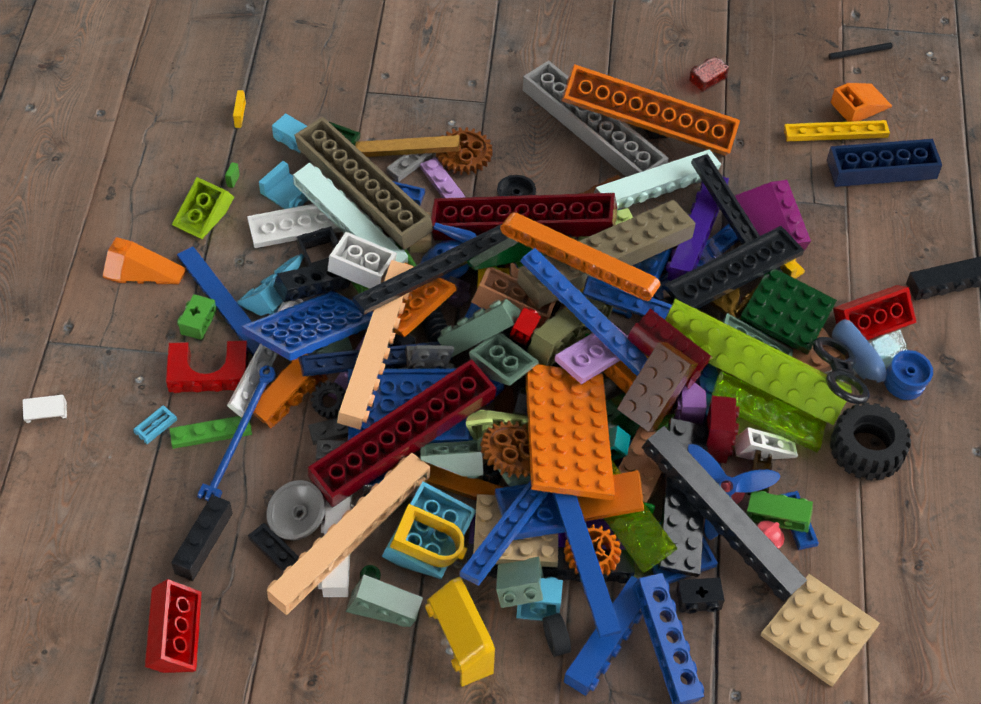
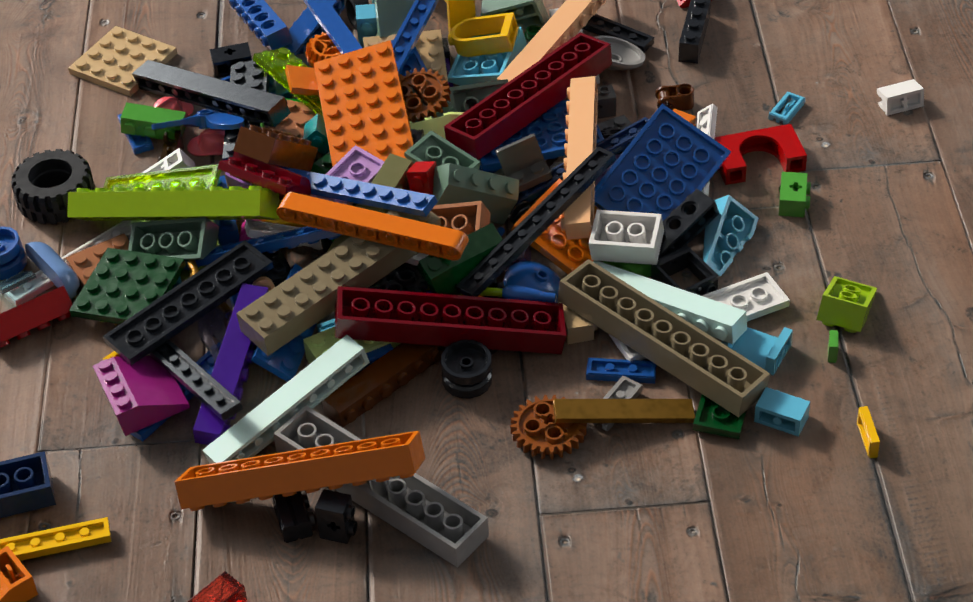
camera: 175 degrees right, 10 degrees down
(133, 262) = (887, 238): orange wedge -> none
(206, 432) = (739, 108): bright green plate -> none
(212, 489) = (704, 69): blue hinge -> none
(215, 290) = (782, 223): blue tile -> none
(258, 449) = (677, 96): none -> reddish brown piece
(440, 179) = (554, 379): lavender plate -> none
(722, 427) = (208, 143): dark red brick -> none
(841, 370) = (77, 214): black bar -> none

